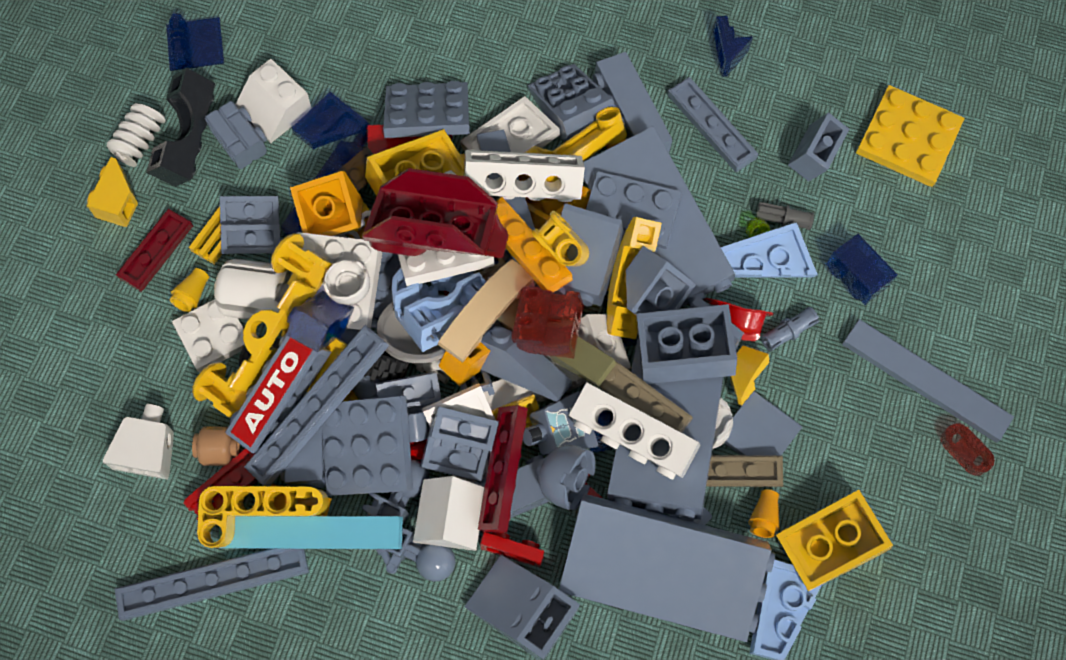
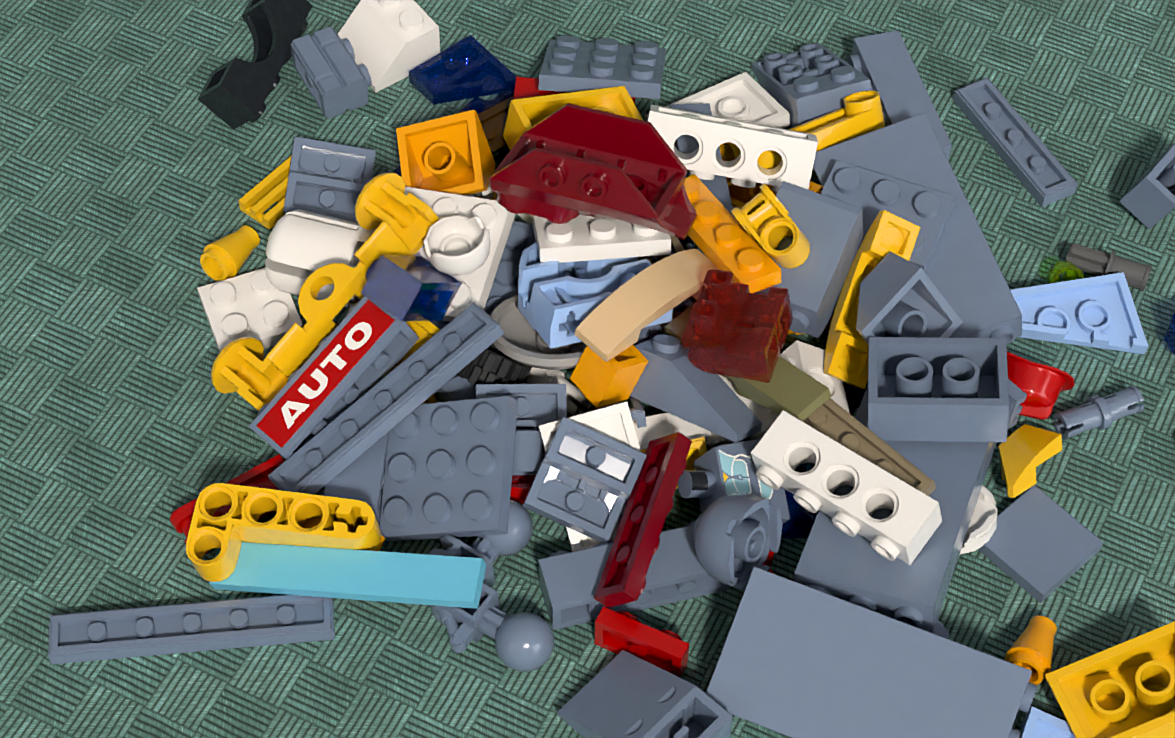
camera: 10 degrees right, 15 degrees down
(113, 196) = (144, 126): yellow slope -> none
(133, 132) = (191, 53): white piece -> none
(142, 445) = (125, 437): white torso -> none
(154, 250) = (189, 200): dark red tile -> none
(214, 446) = (229, 448): medium nougat head -> none
(449, 513) = (556, 570): white slope -> none
(729, 49) = (1051, 49): clear blue slope -> none
(745, 471) = (1007, 588): dark tan tile -> none

